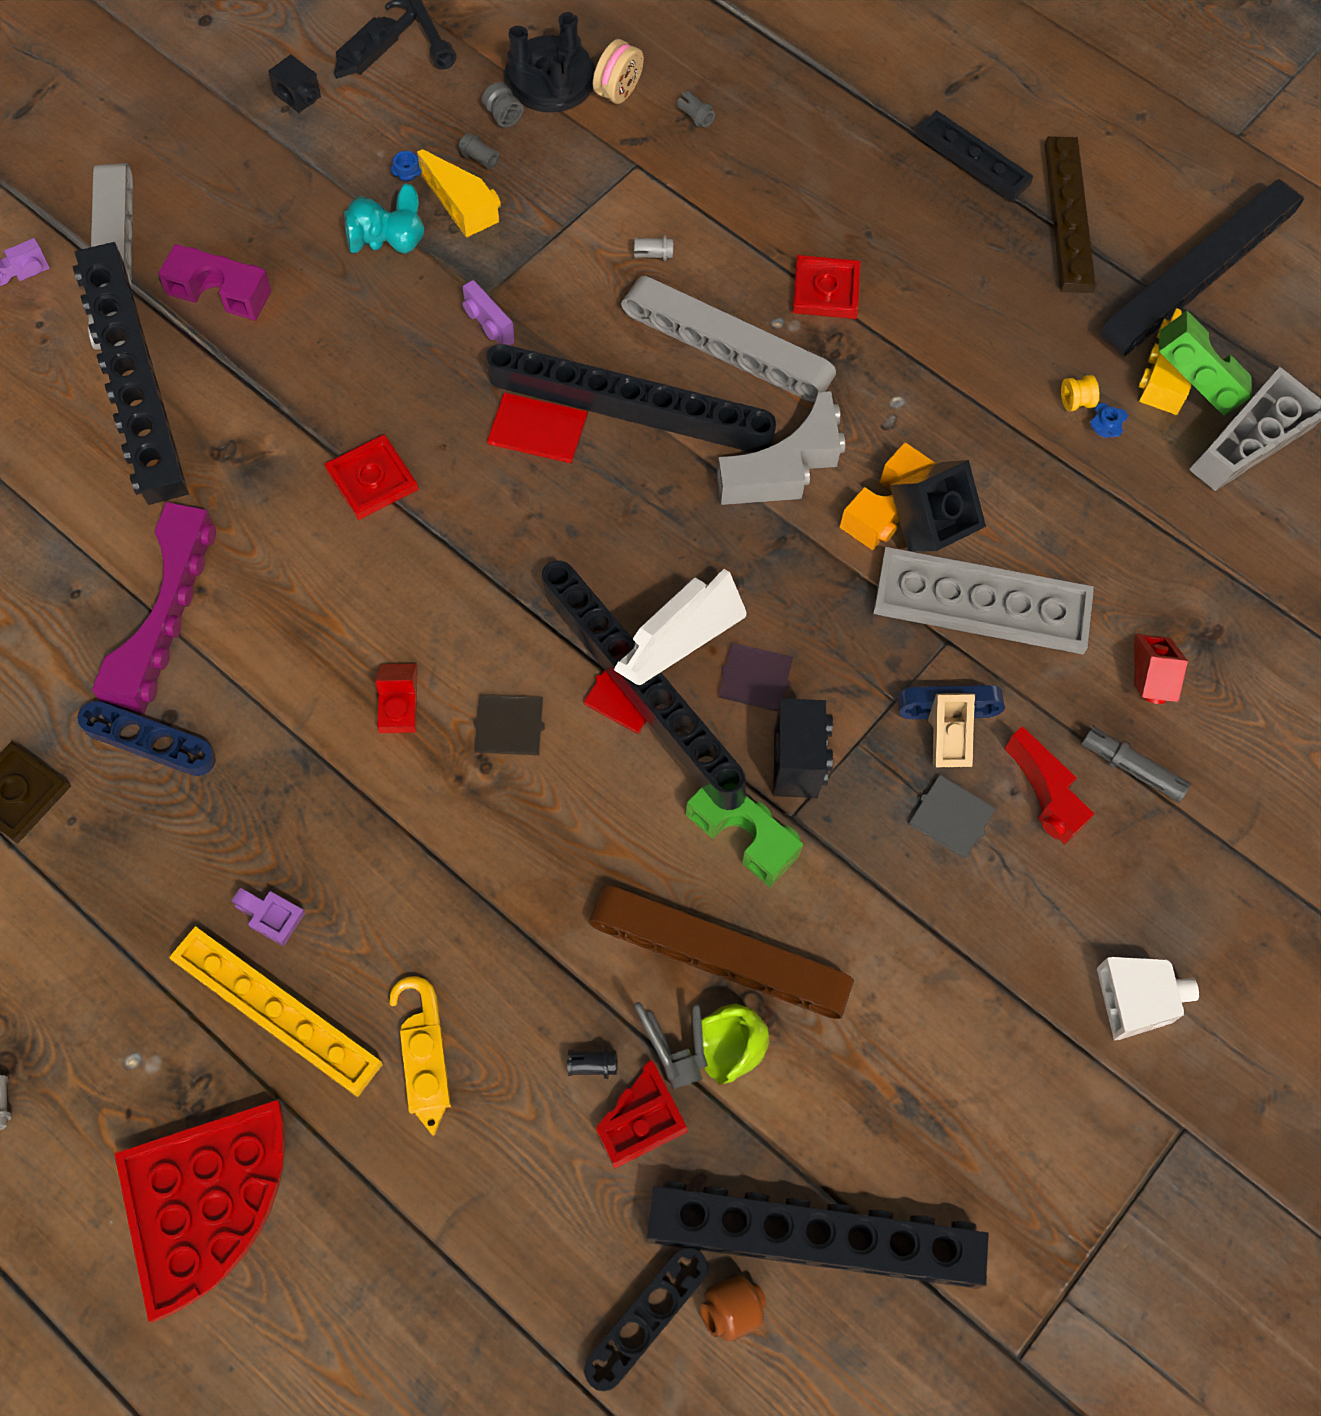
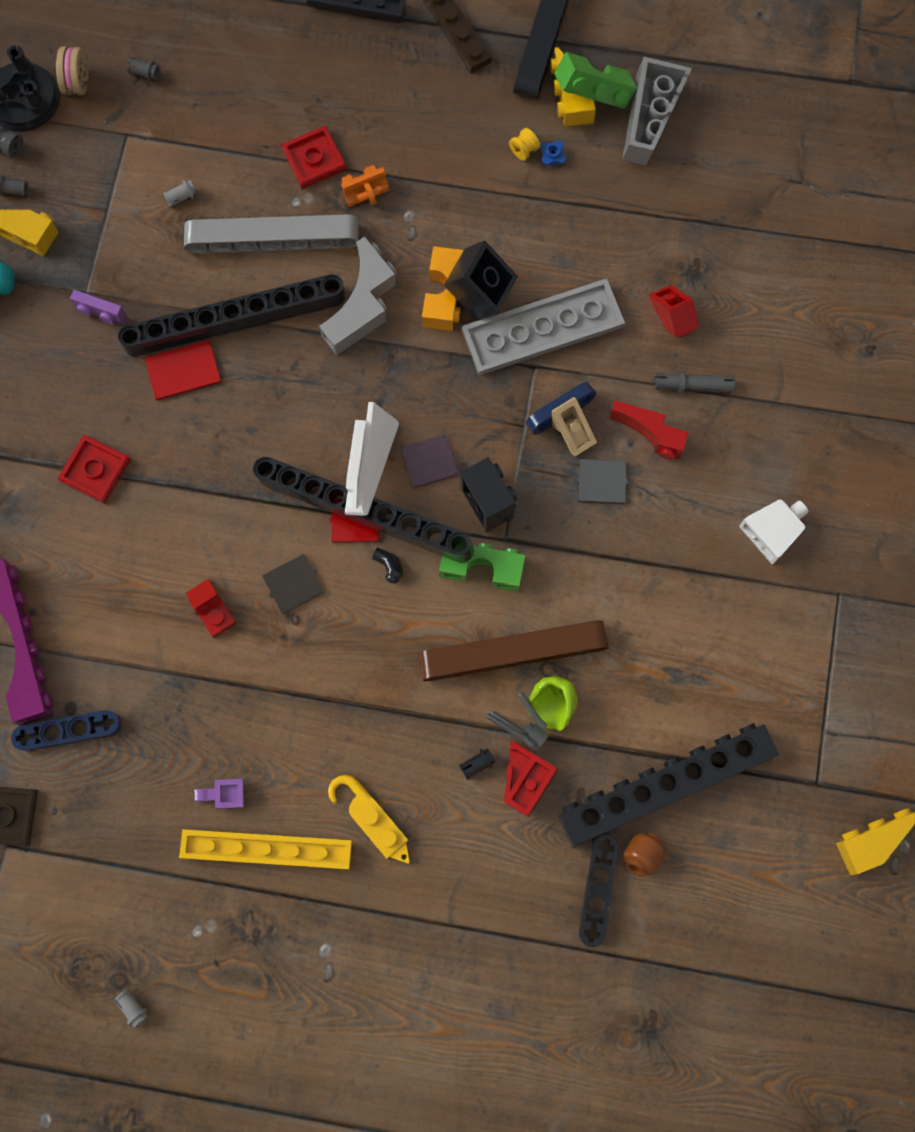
camera: 25 degrees left, 10 degrees up
(200, 1202) = (297, 986): red plate -> none
(637, 768) = (392, 564): none -> black arm
(865, 343) = (365, 186): none -> orange hips

